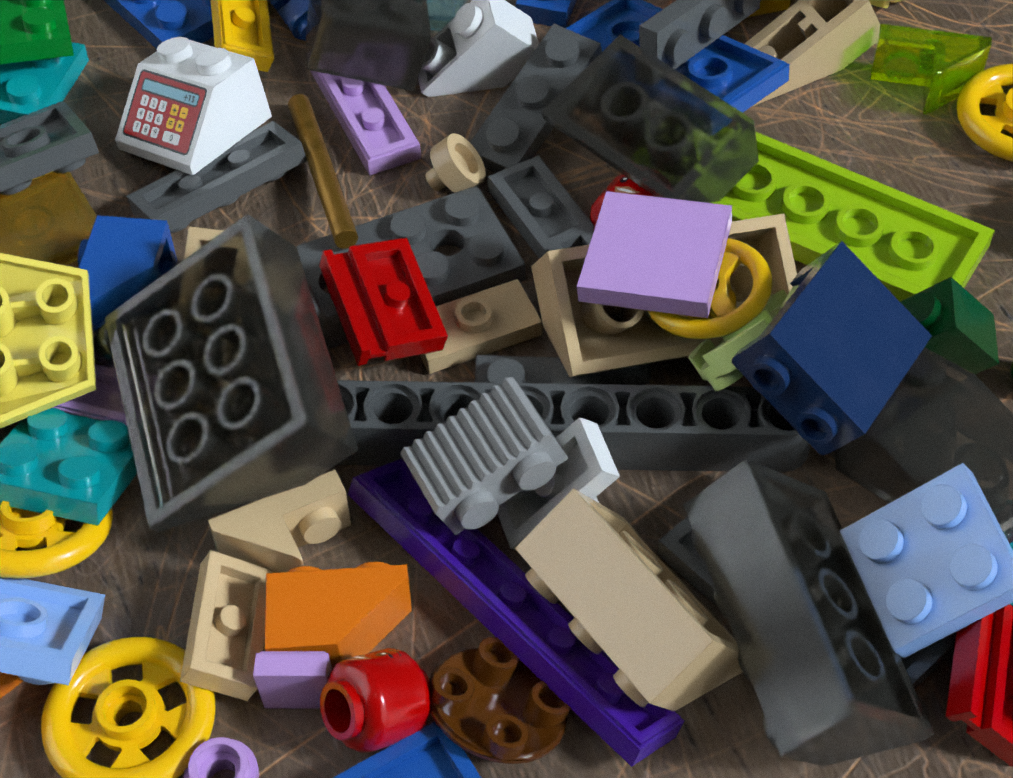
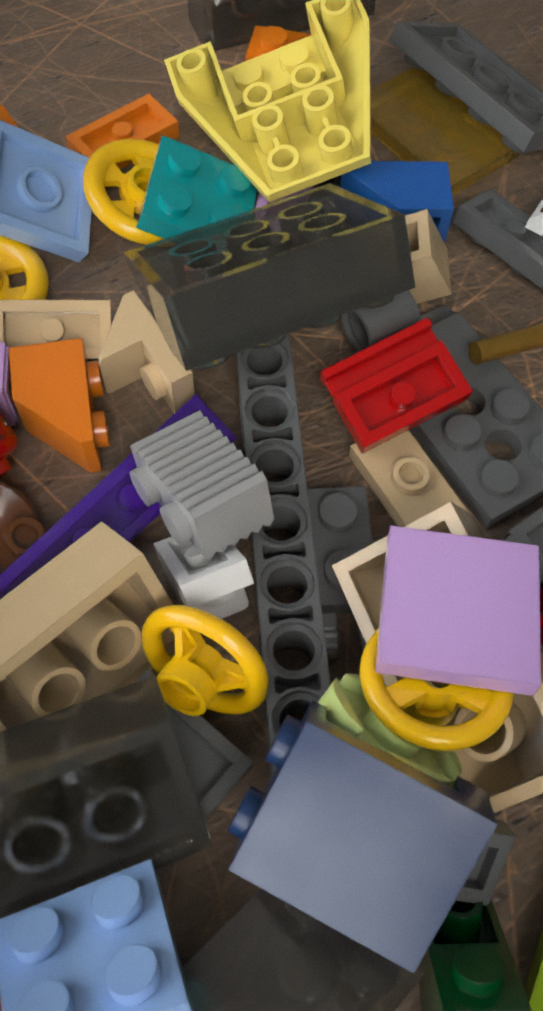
camera: 80 degrees right, 10 degrees up
(669, 481) = (197, 671): none -> yellow piece

